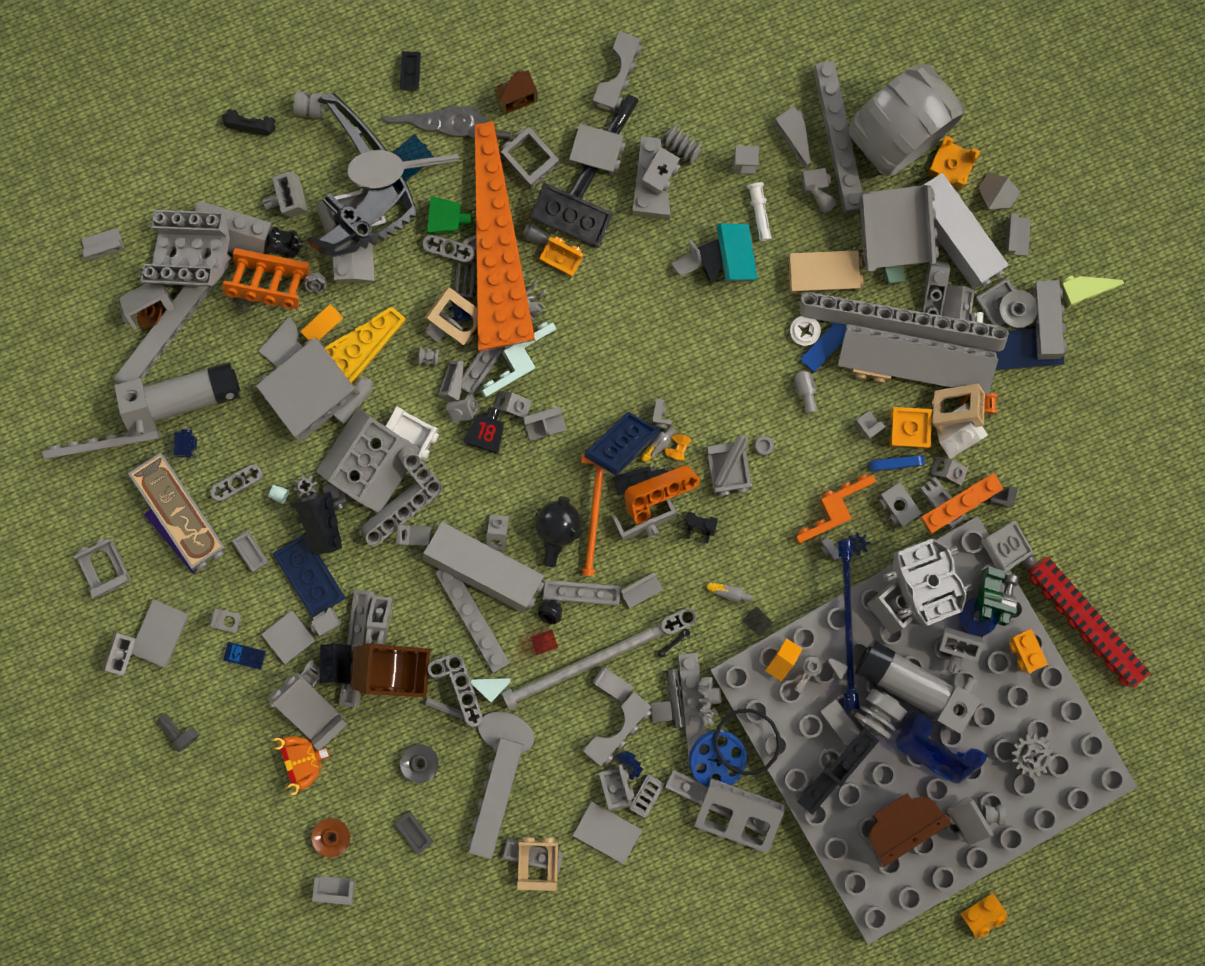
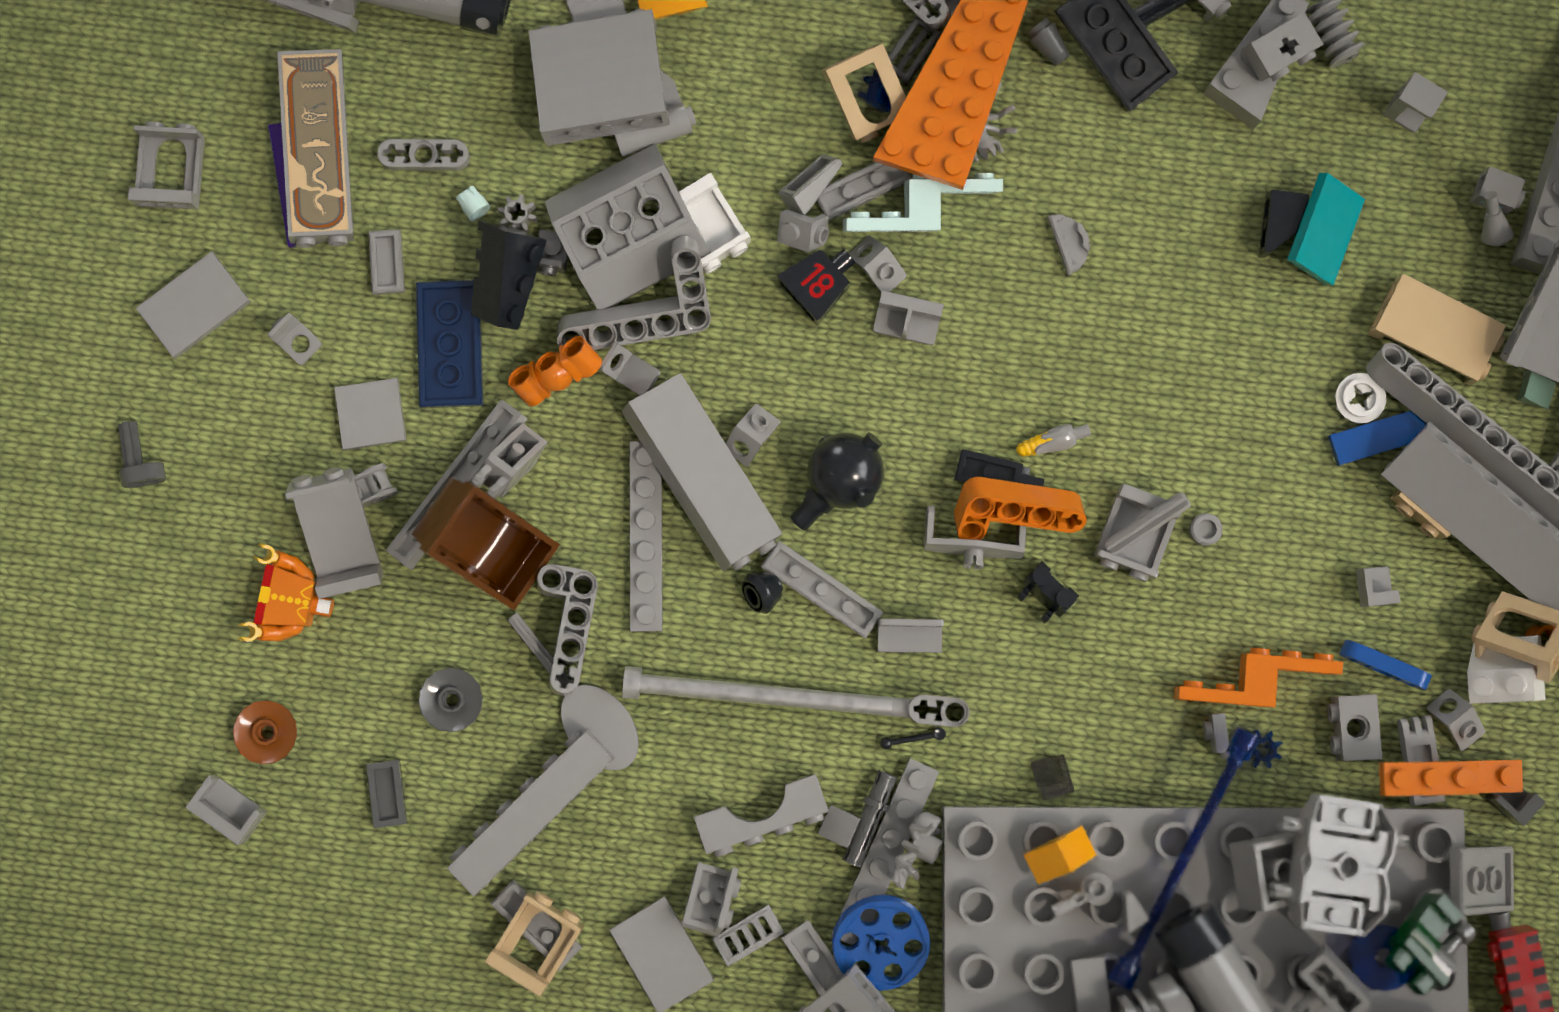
camera: 35 degrees right, 0 degrees up
(118, 654) = (118, 300): light grey brick -> none
(185, 444) = (382, 58): clear blue window -> none
(244, 655) = (294, 404): clear blue tile -> none
(325, 622) = (433, 422): light grey window -> none
(335, 664) = (412, 488): black piece -> none
(361, 346) = (706, 61): yellow wing -> none
(374, 558) = (555, 371): none -> orange piece
(428, 357) = (796, 129): light grey bush -> none
(436, 333) = (827, 102): light grey bracket -> none
(491, 687) = (615, 651): light aqua slope -> none
(544, 642) = (727, 629): clear red panel -> none
(562, 256) = (1069, 93): light orange bracket -> none
(588, 571) = (954, 421): orange tile -> none
(607, 333) = (1070, 240): none -> light grey tile
(612, 684) = (791, 746): light grey panel -> none
(621, 443) = (1003, 408): dark blue tile -> none
(629, 759) = (753, 868): clear blue bracket -> none
(659, 411) = (1082, 394): light grey bracket -> none
(678, 453) = (1074, 470): light orange piece -> none
(690, 262) = (1249, 206): light grey bracket -> none
(727, 764) = (990, 943): black piece -> none
(729, 592) = (1035, 711): light grey piece -> none
(758, 202) = (1396, 177): white pin -> none
(793, 129) = (1507, 100): light grey slope -> none
(806, 388) = (1313, 481): light grey arm -> none
(910, 428) = (1436, 625): light orange panel -> none

